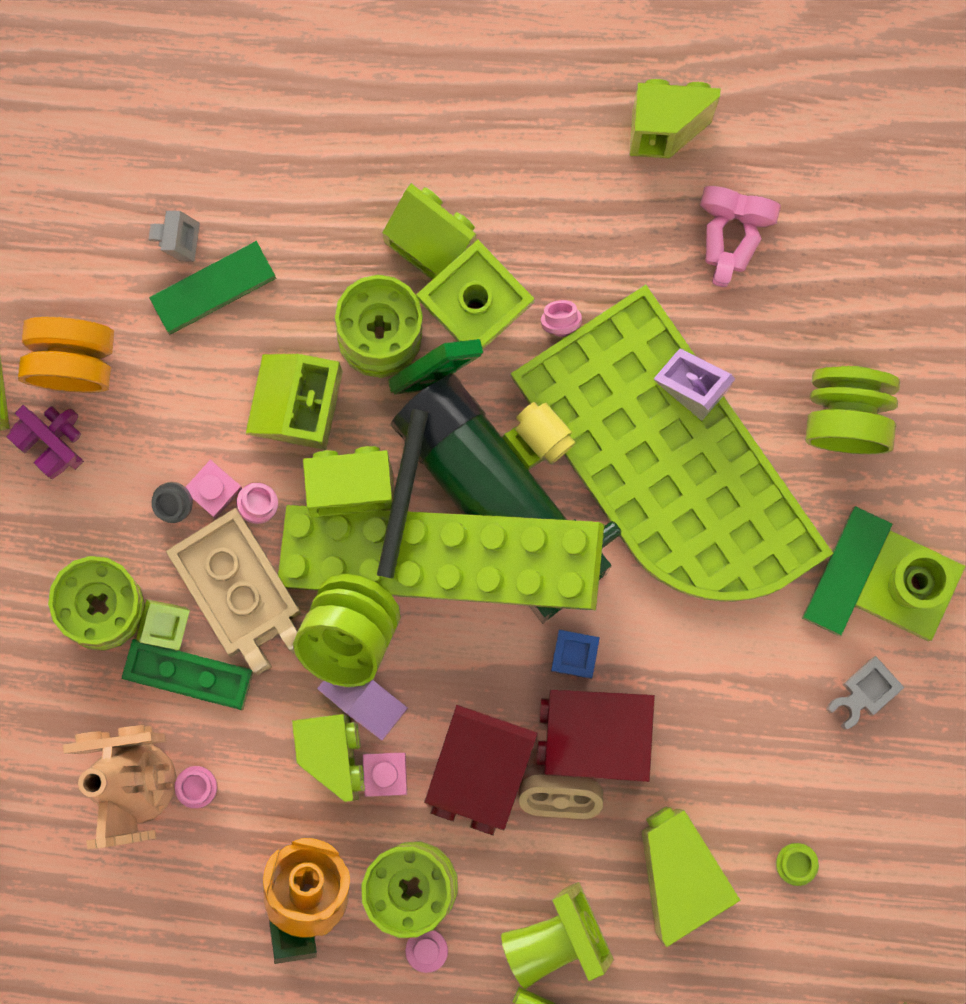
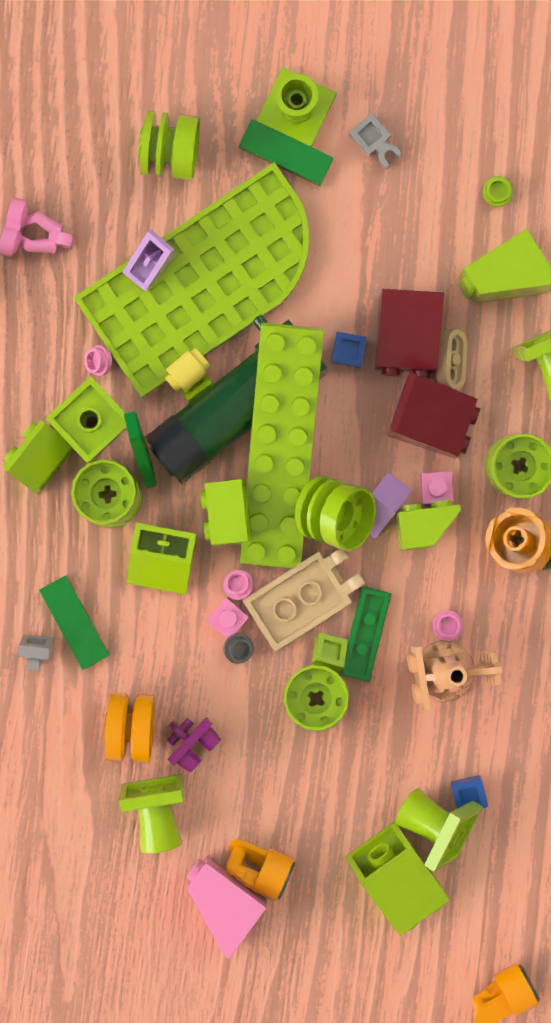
camera: 90 degrees left, 5 degrees up
(402, 493) = (236, 471): pearl dark grey bar -> none

